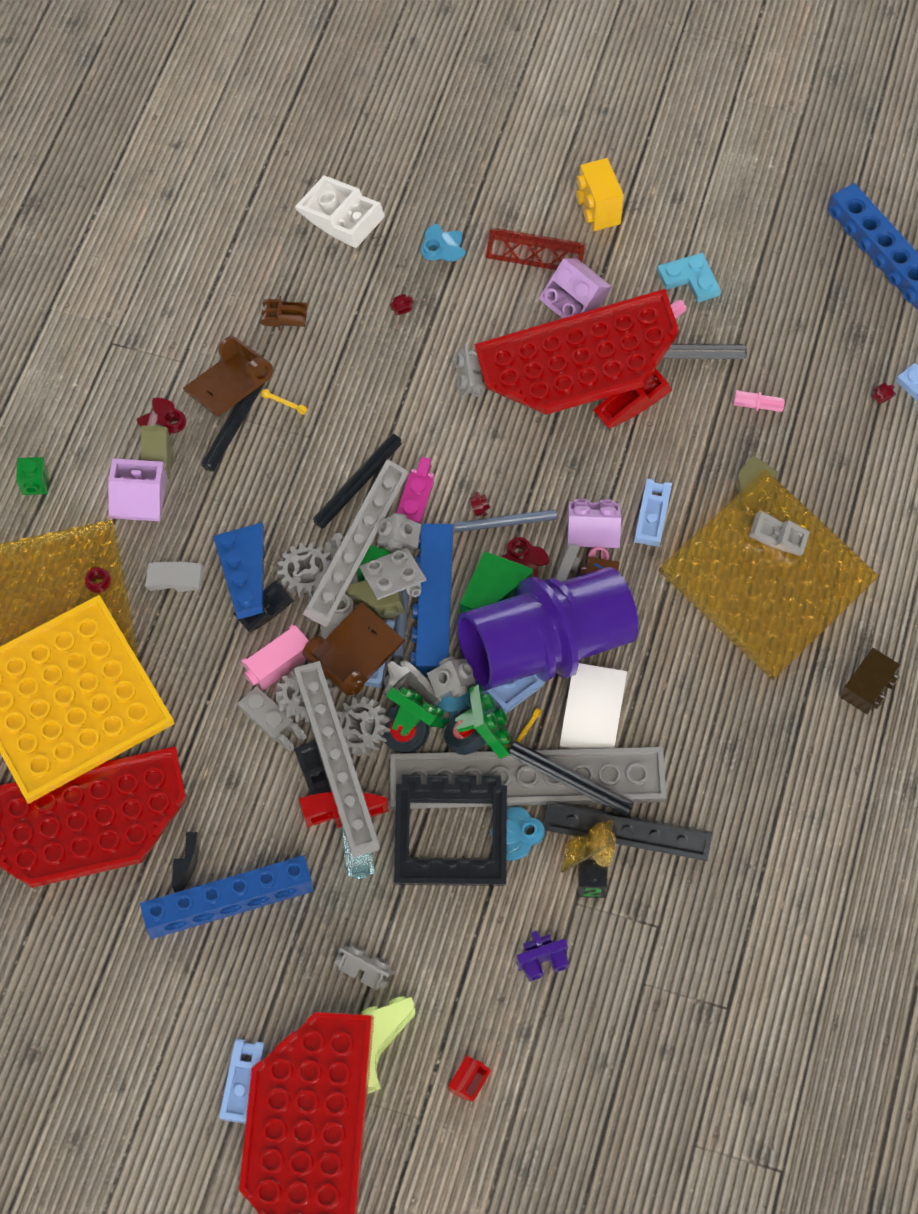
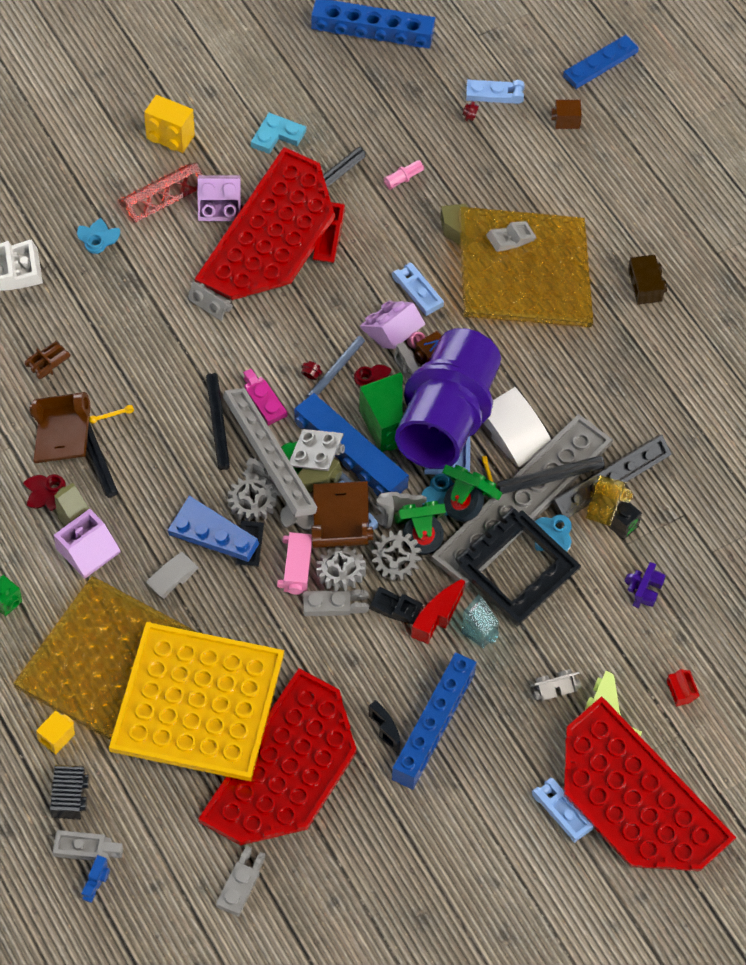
camera: 50 degrees left, 5 degrees down
(94, 574) = (131, 610): dark red plate -> none
(336, 760) = (415, 577): light grey plate -> none
(398, 533) = (287, 426): light grey brick -> none
(402, 304) = (118, 292): dark red plate -> none
(451, 678) = (421, 485): light grey brick -> none

